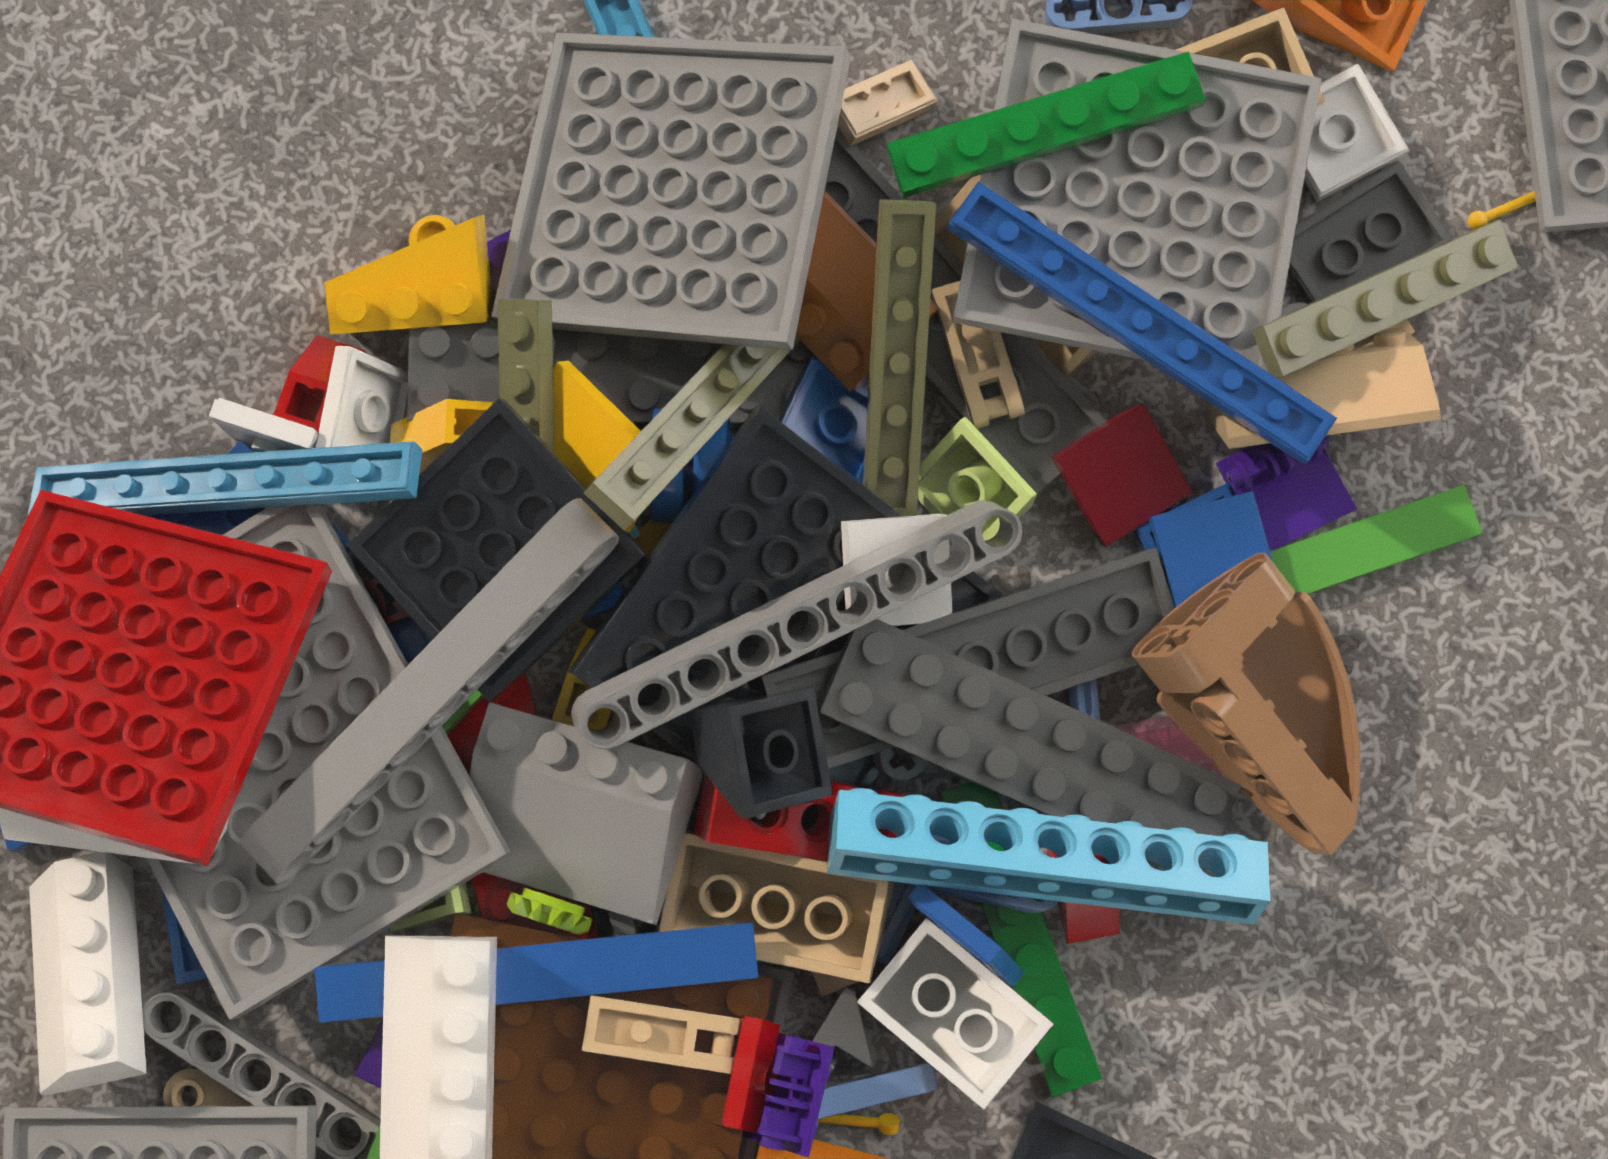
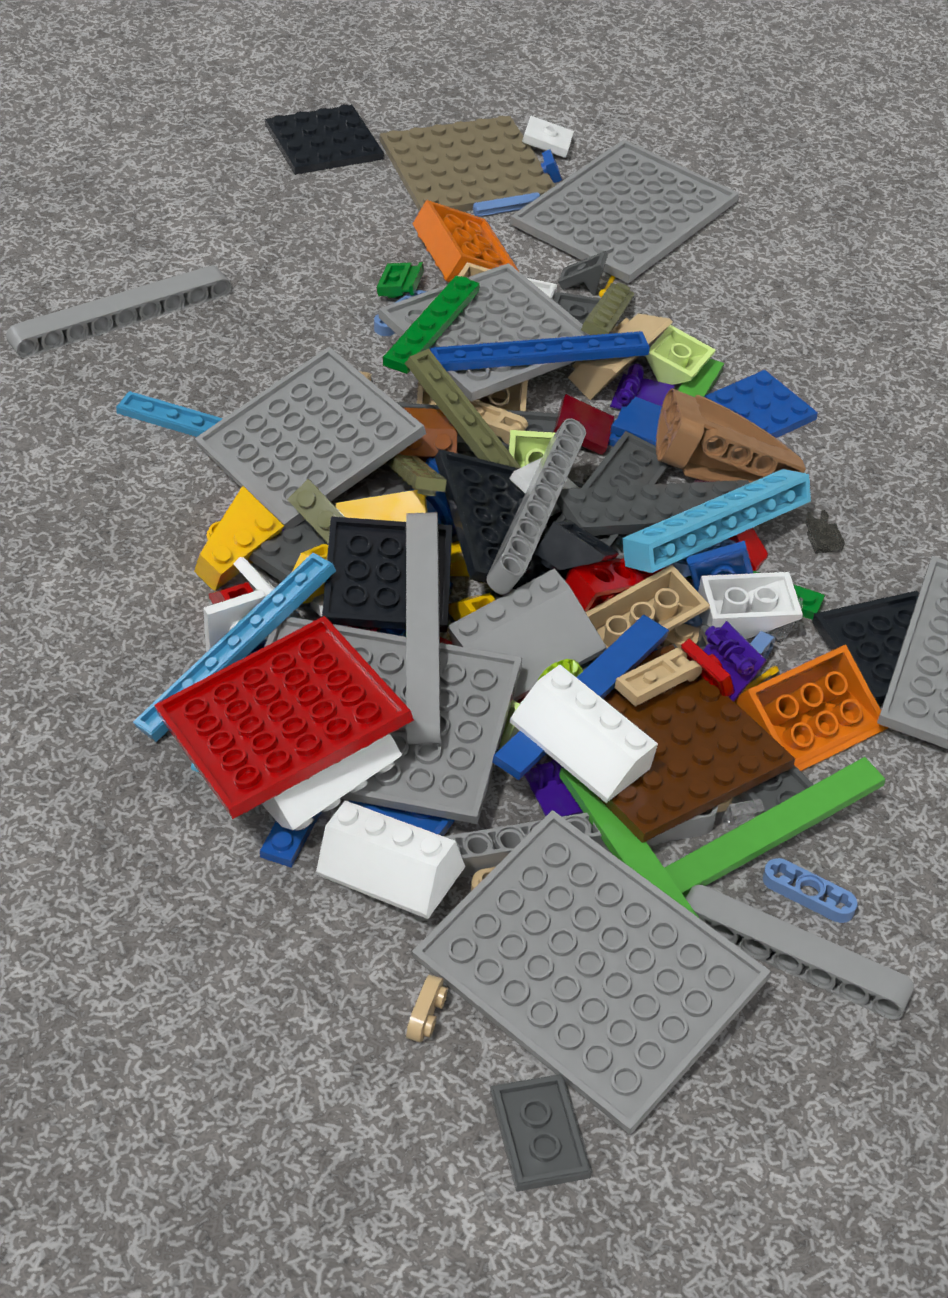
camera: 55 degrees left, 35 degrees down
(1227, 981) = (823, 536): none -> clear smoke plate
(1406, 474) = (677, 356): none -> yellowish green slope
(1438, 663) = (765, 403): none -> blue plate
(1473, 161) = (587, 271): none -> dark grey slope

